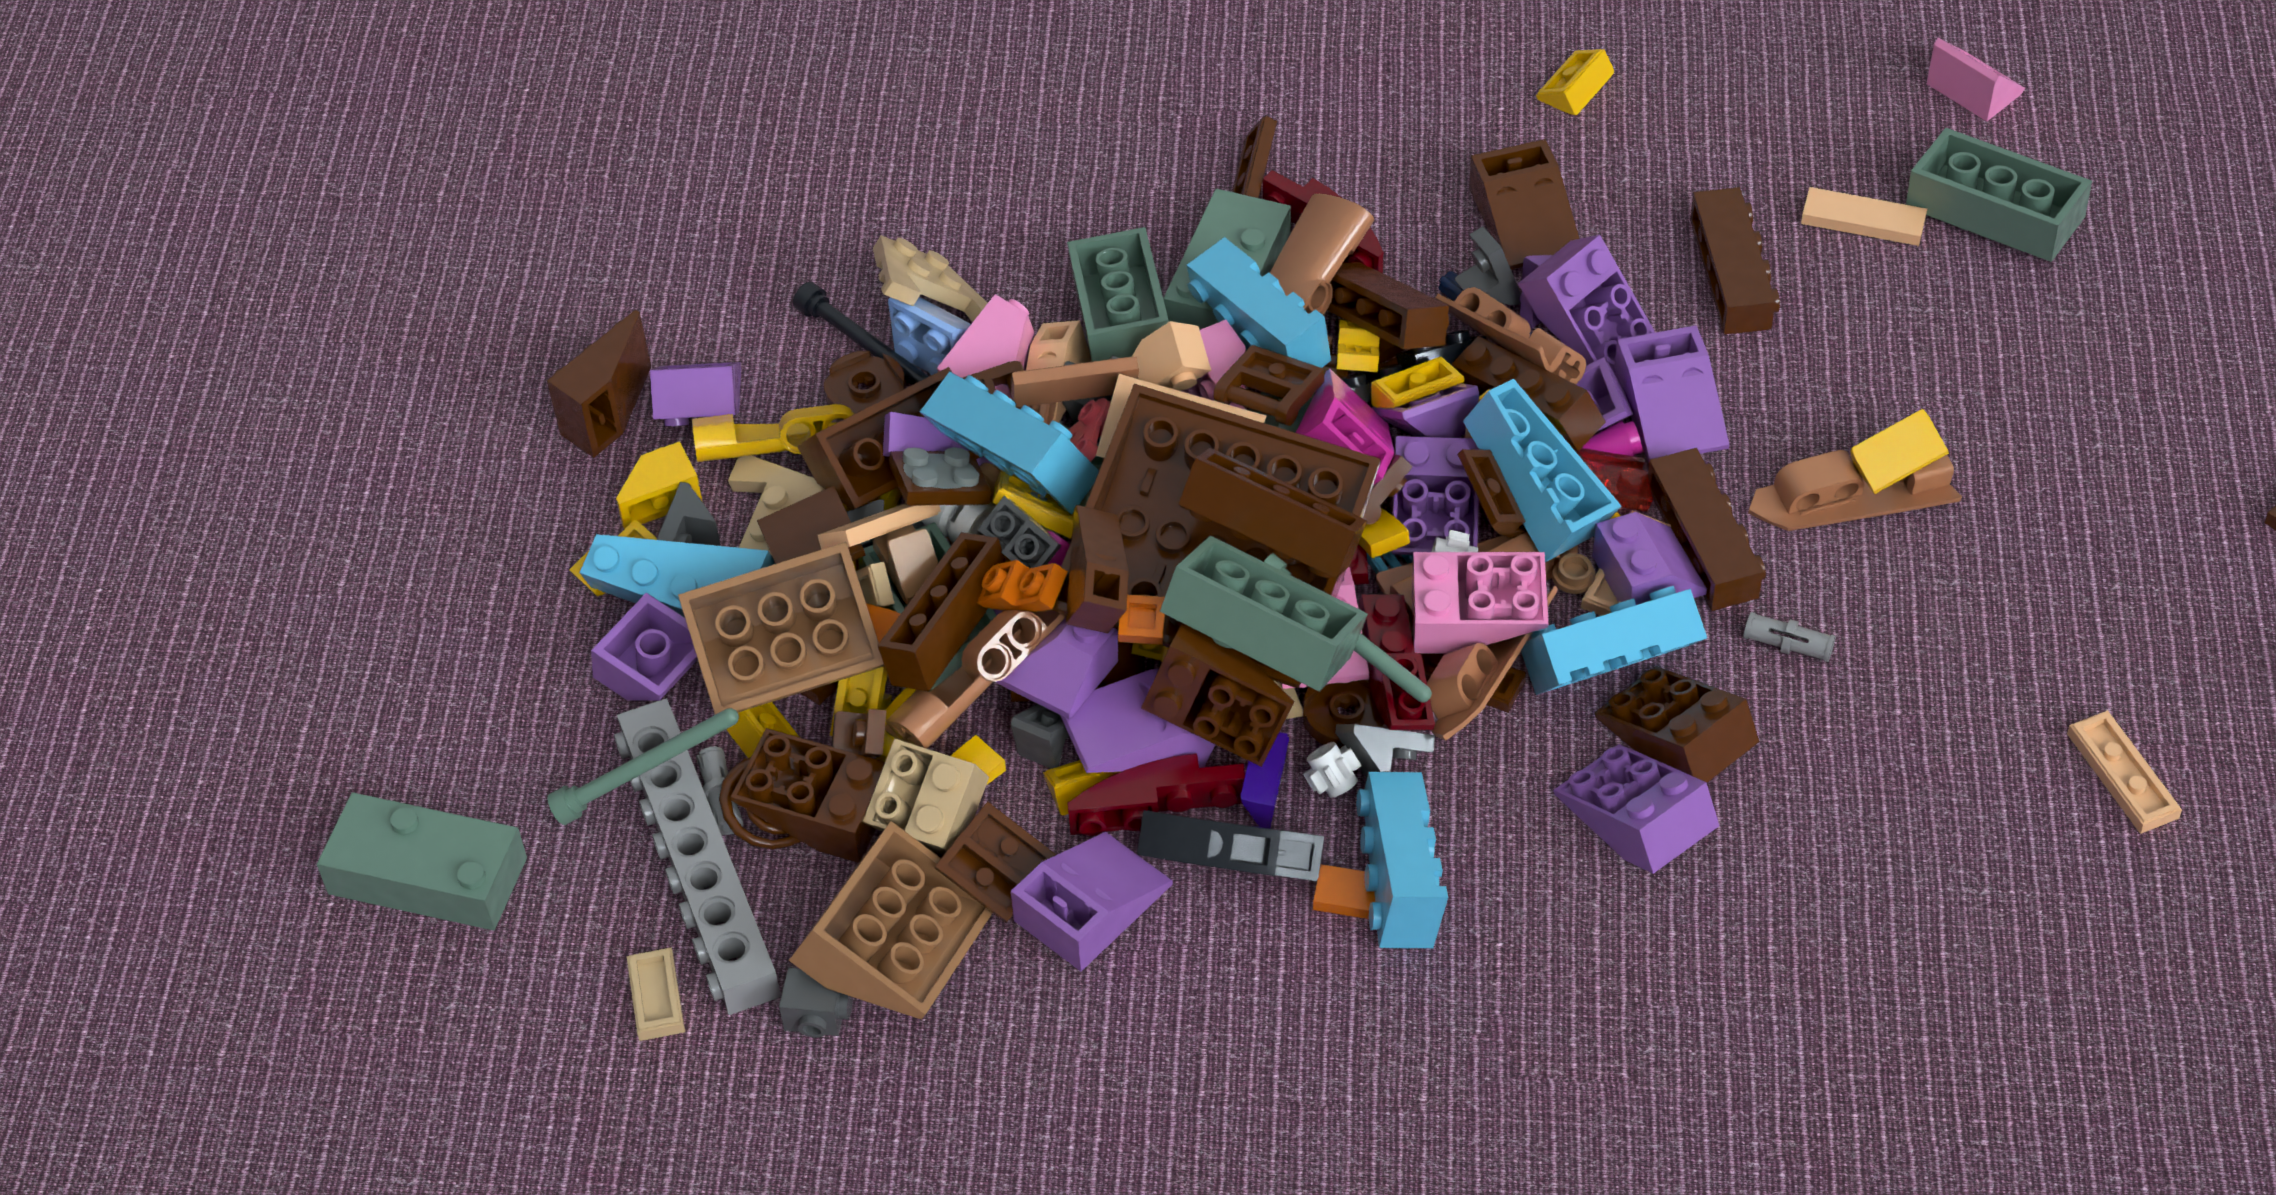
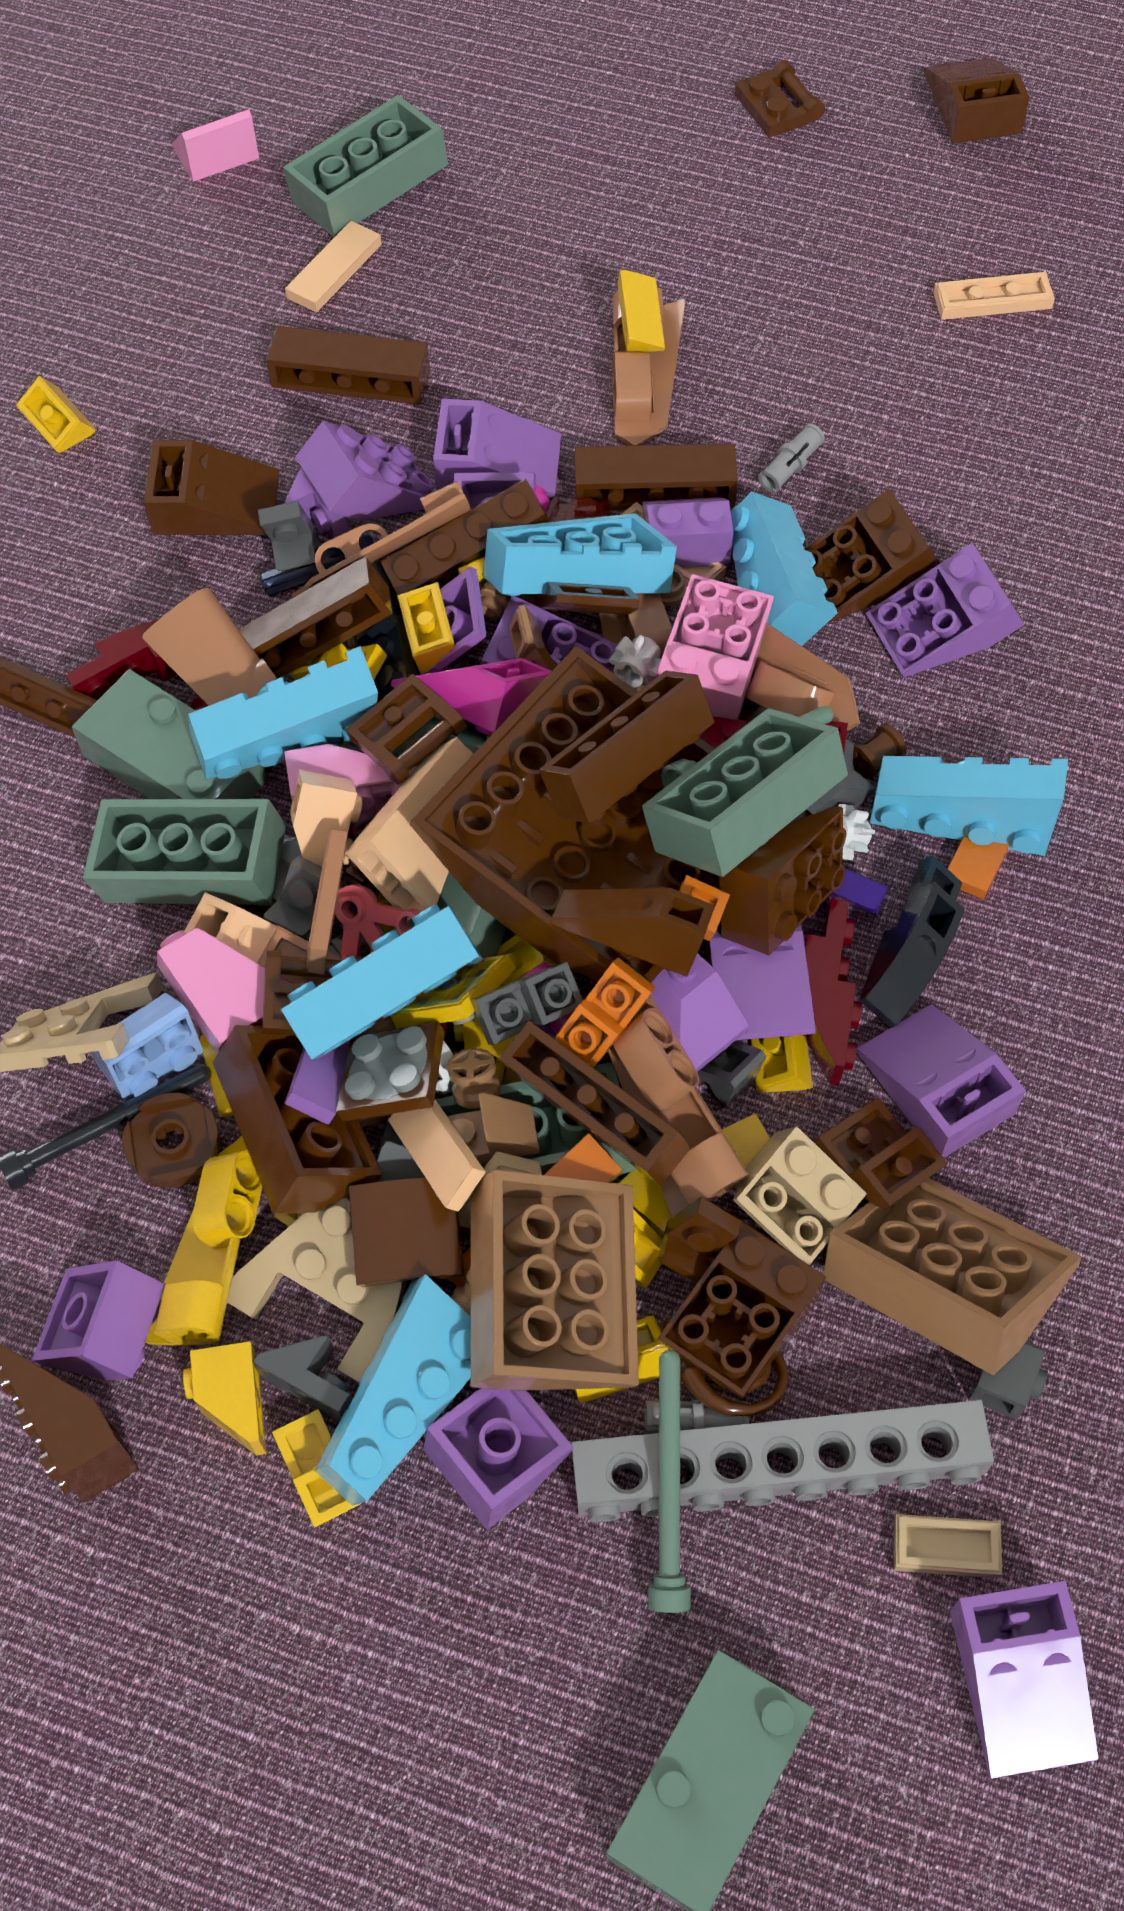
camera: 75 degrees left, 10 degrees up
(550, 1055) = (1026, 1678): none -> slope
(950, 527) = (473, 1074): none -> medium nougat wheel
(1427, 456) = (524, 633): none -> medium nougat slope
(1444, 780) = (869, 755): none -> reddish brown bush

